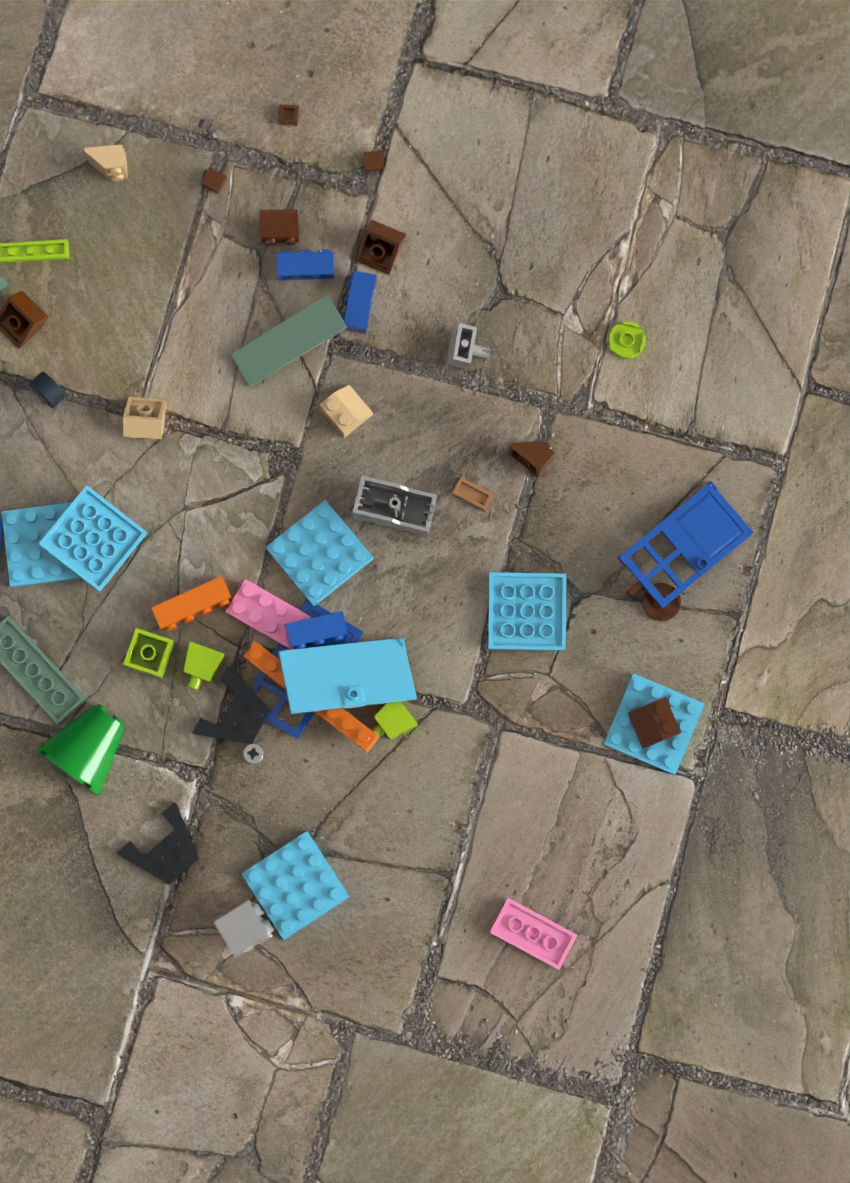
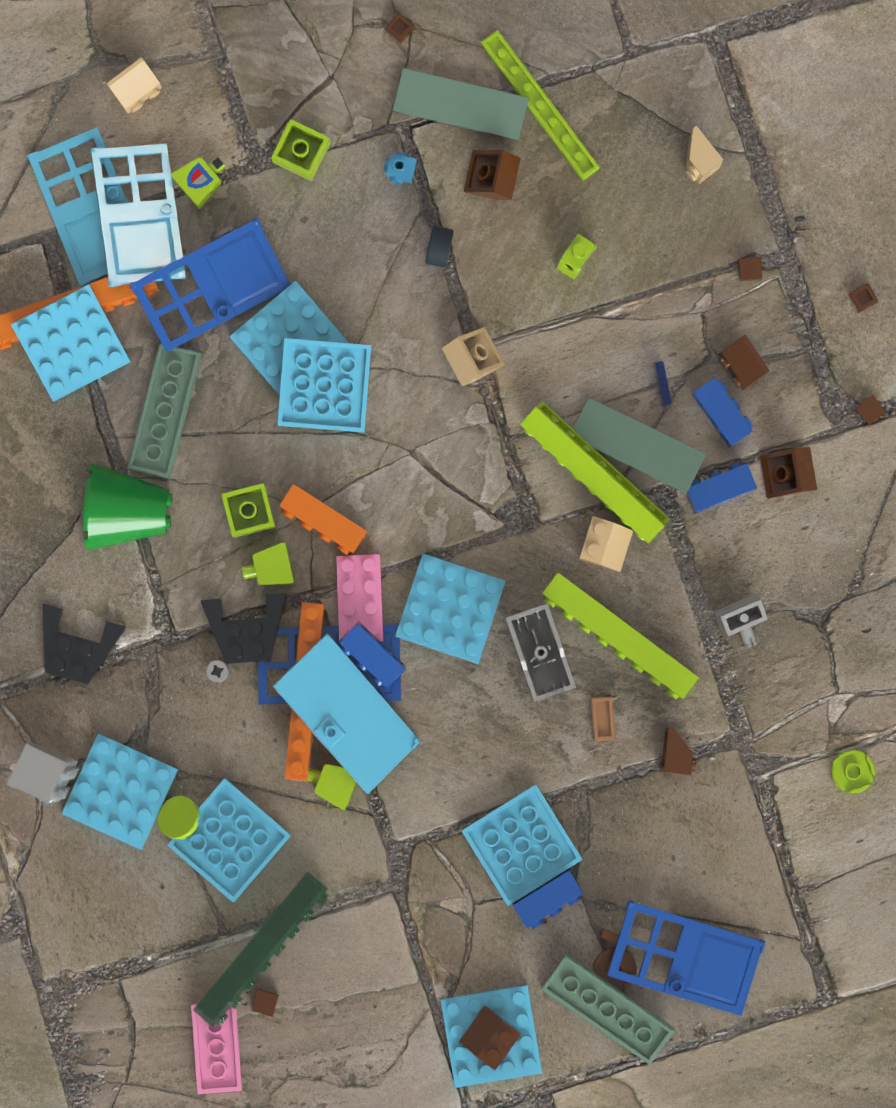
camera: 60 degrees right, 5 degrees up
(121, 295) = (576, 256): none -> lime torso
(256, 295) = (662, 383): none -> clear blue tile
(288, 383) = (595, 472): none -> lime brick
(343, 852) = (178, 817): none -> lime tile
(384, 825) = (231, 840): none -> medium azure plate
(420, 442) = (620, 636): none -> lime brick
(481, 852) = (260, 950): none -> clear green brick
(523, 876) = (265, 1002): none -> reddish brown tile
(579, 617) = (548, 899): none -> blue brick
(687, 625) = (608, 1008): none -> sand green tile

